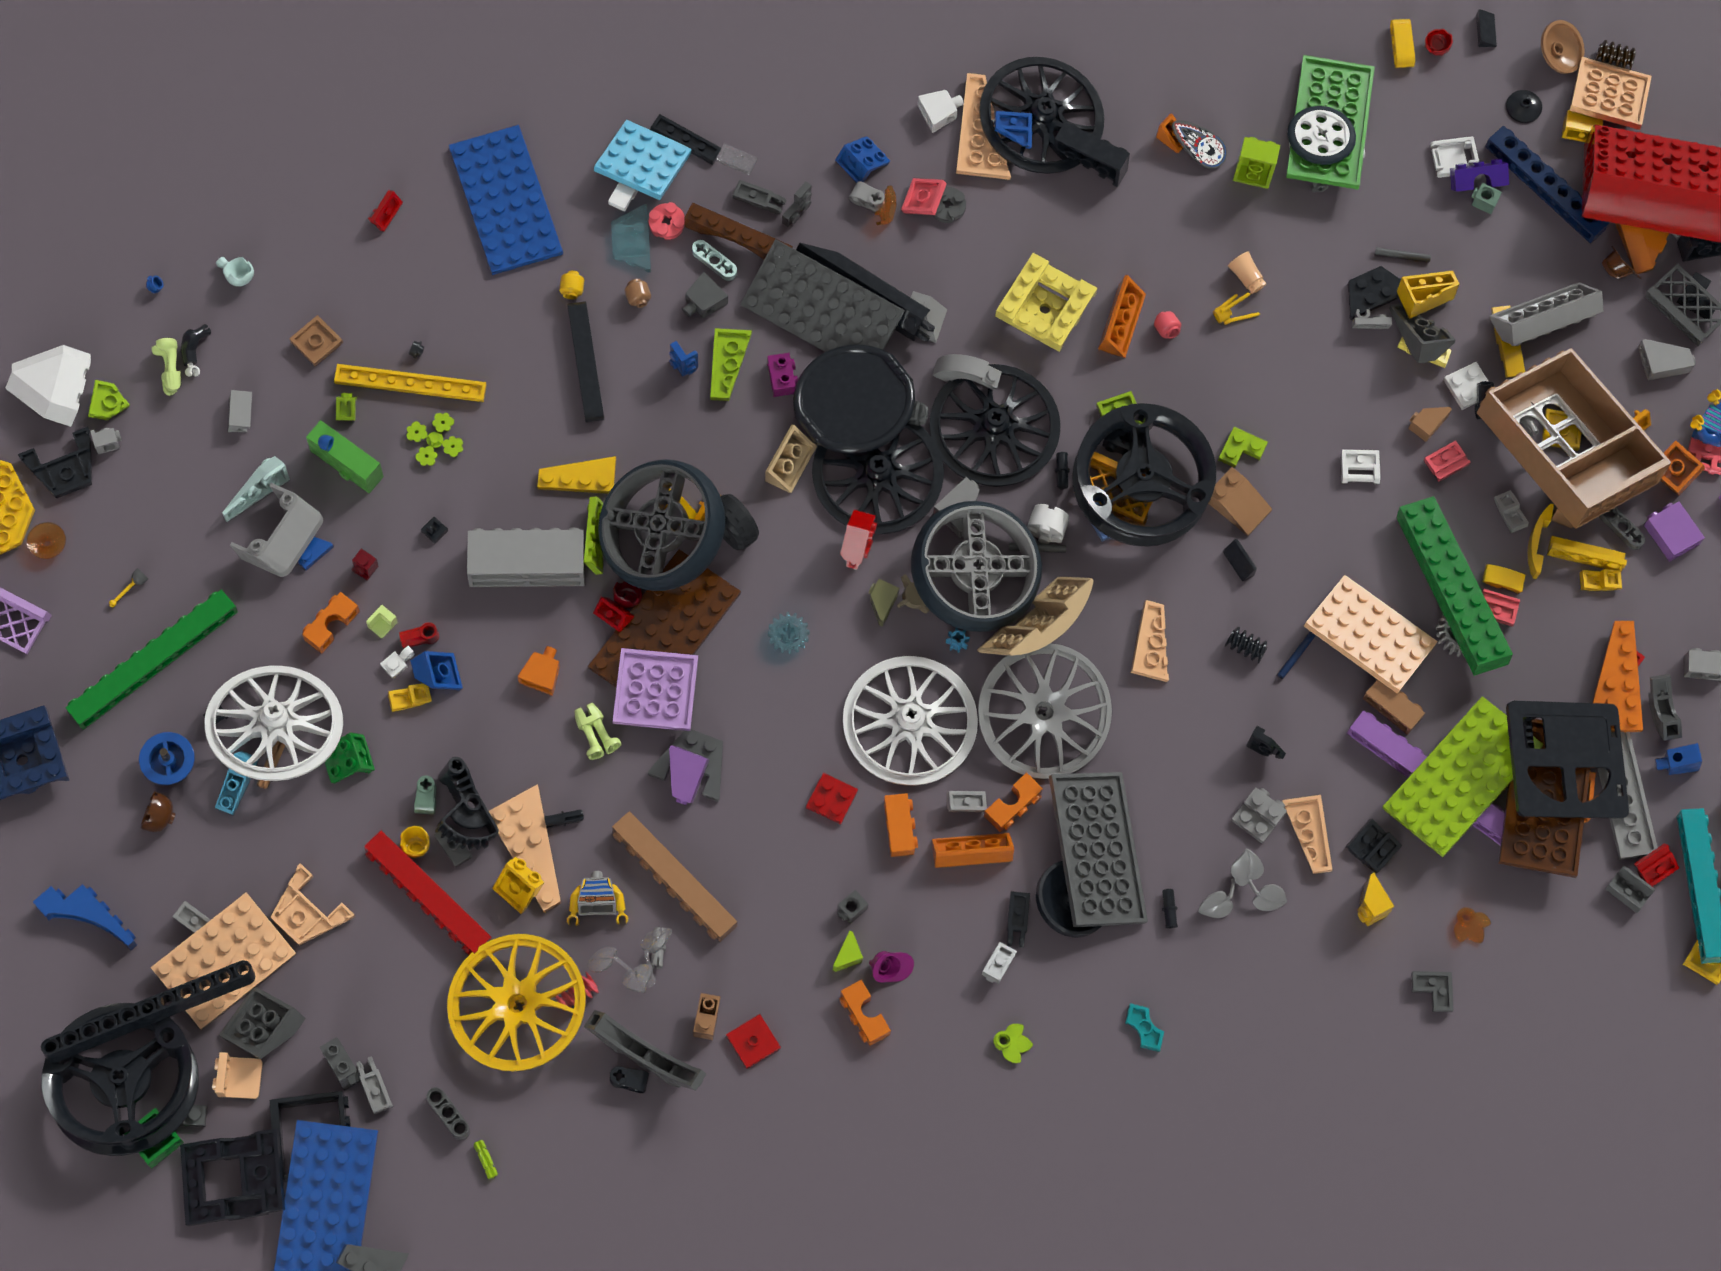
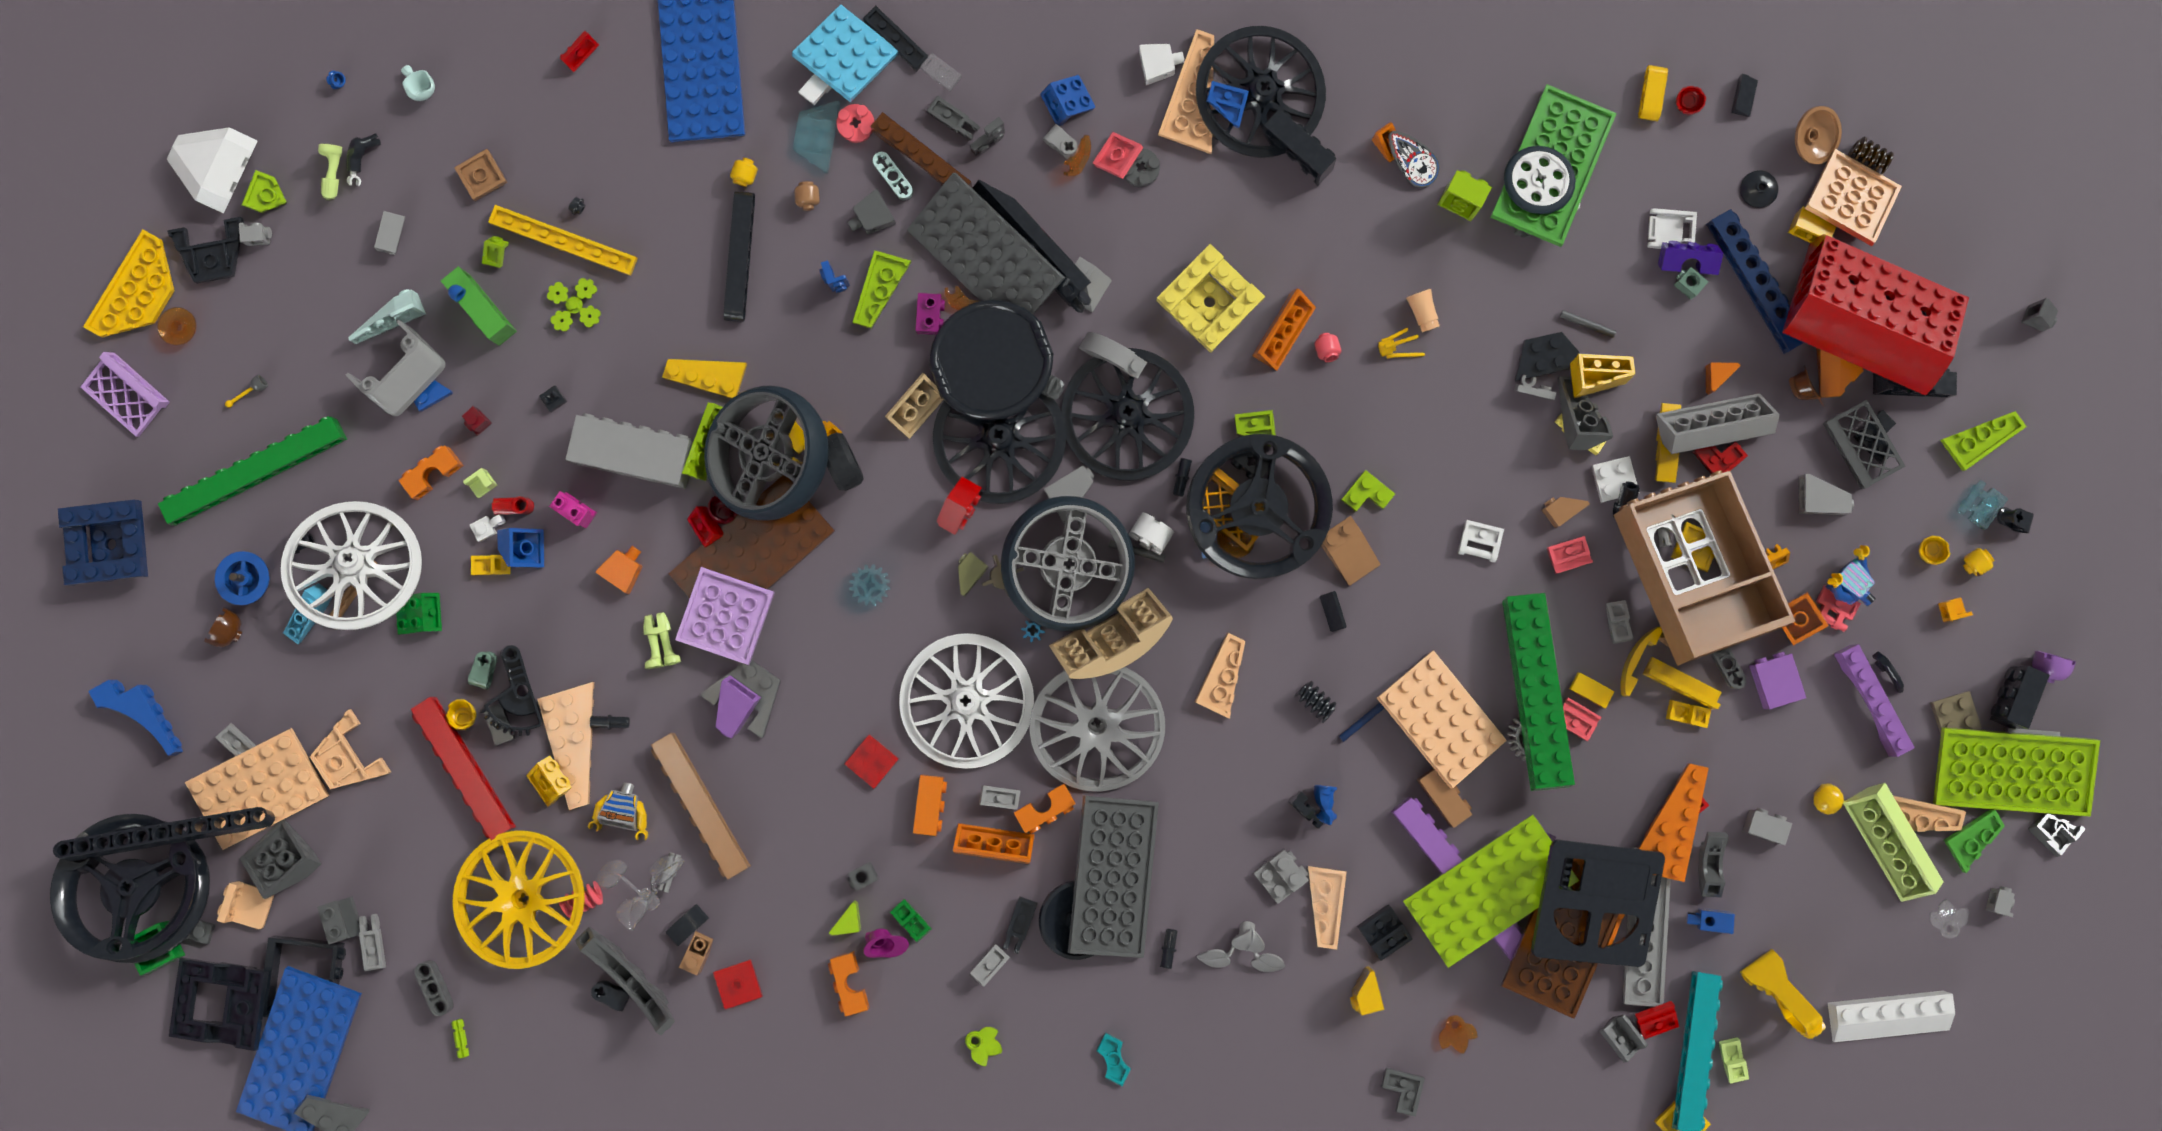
camera: 20 degrees right, 15 degrees up
(481, 623) = (572, 509): none -> dark pink hips
(688, 994) = (687, 925): none -> black slope
(803, 358) = (958, 299): none -> clear orange piece
(909, 940) = (911, 920): none -> green slope
(1279, 730) = (1325, 801): none -> blue animal
(1535, 270) = (1717, 374): none -> orange slope
(1551, 345) = (1724, 461): none -> red plate

